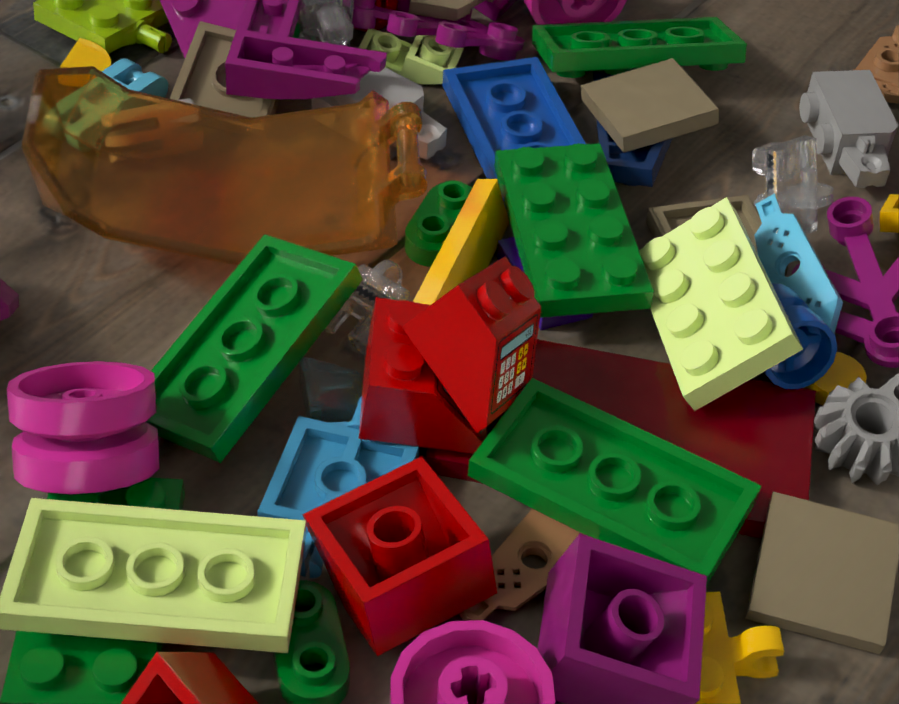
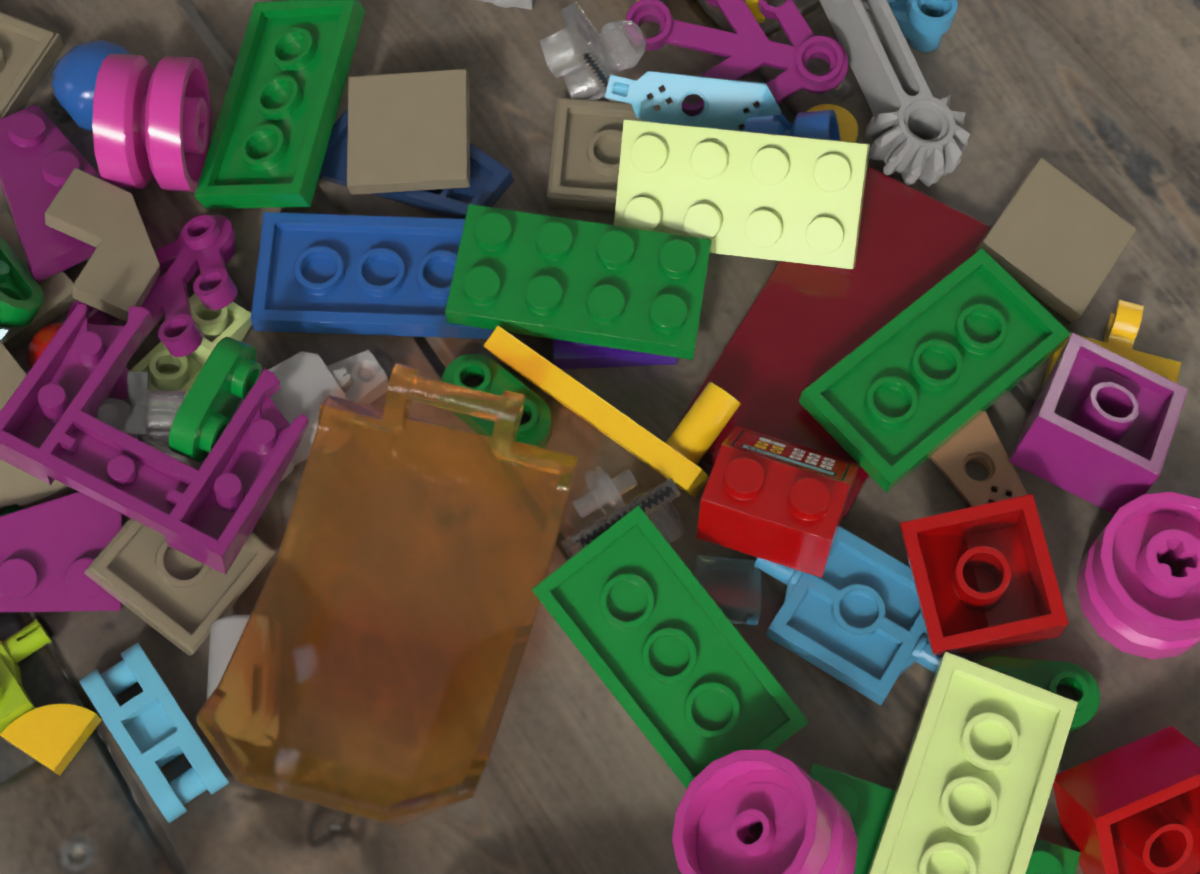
camera: 70 degrees left, 20 degrees up
(356, 30) = (213, 398): none -> green plate
(481, 340) = (781, 417): red slope -> none

